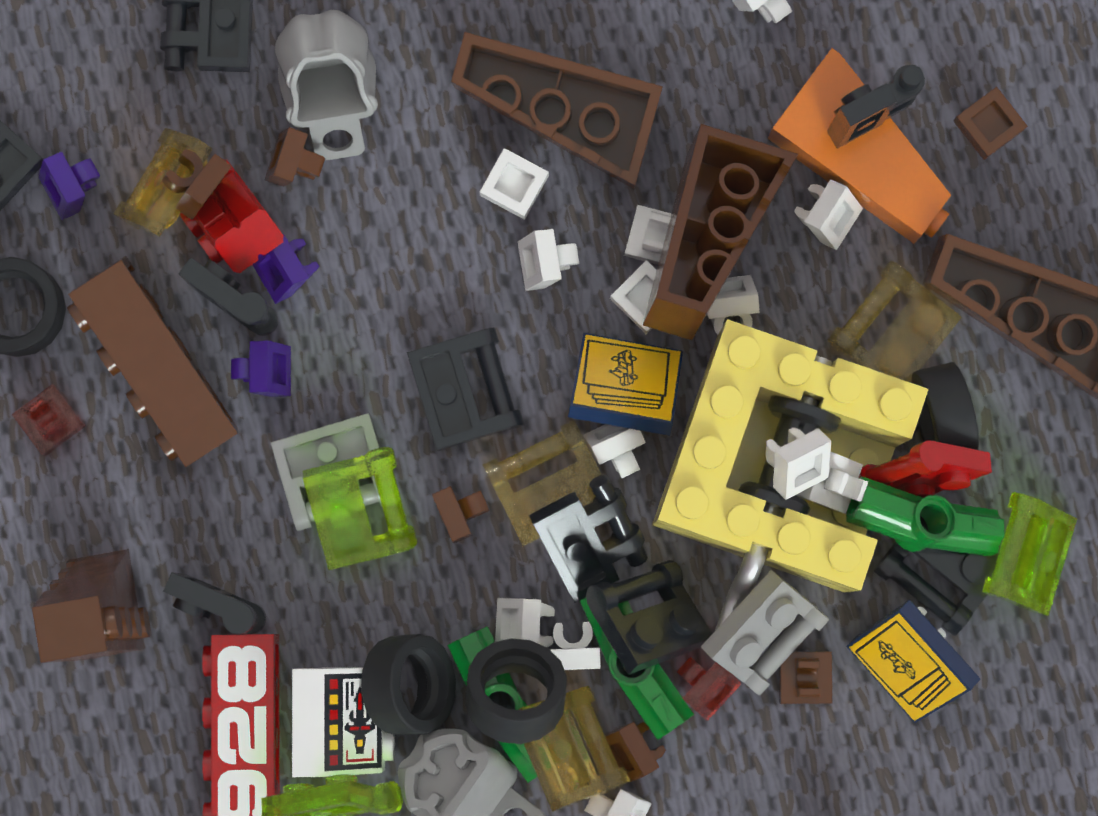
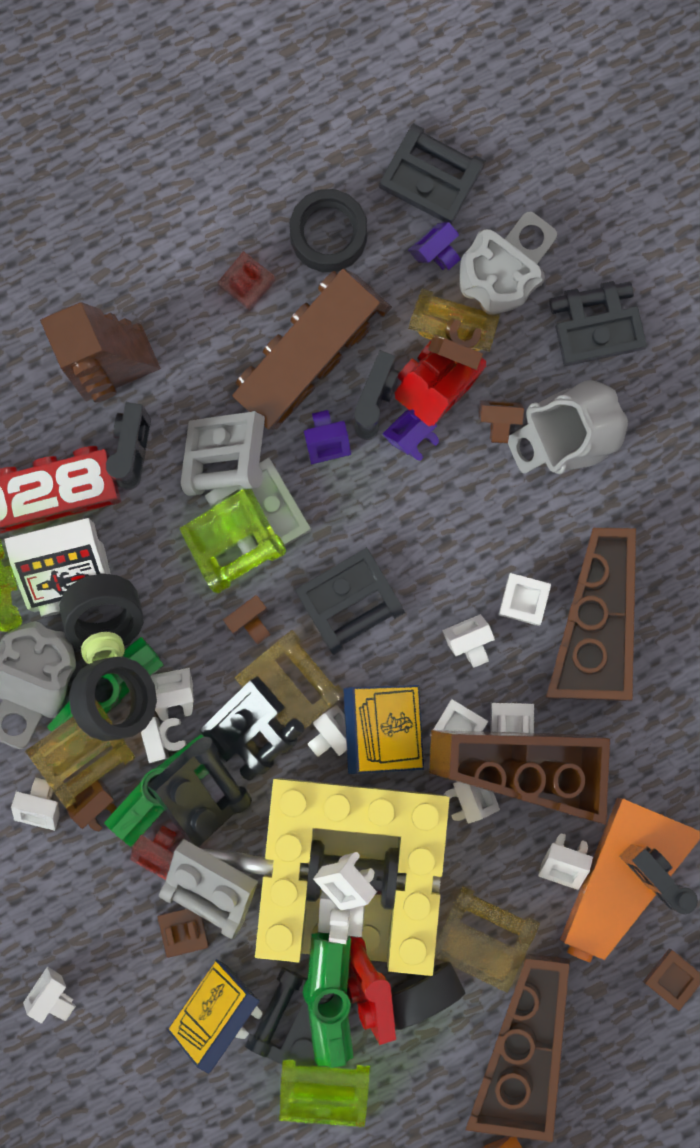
camera: 80 degrees right, 0 degrees up
(118, 112) = (501, 270): none -> light grey piece
(236, 494) = (223, 440): none -> light grey plate
(450, 692) = (102, 646): none -> yellowish green plate

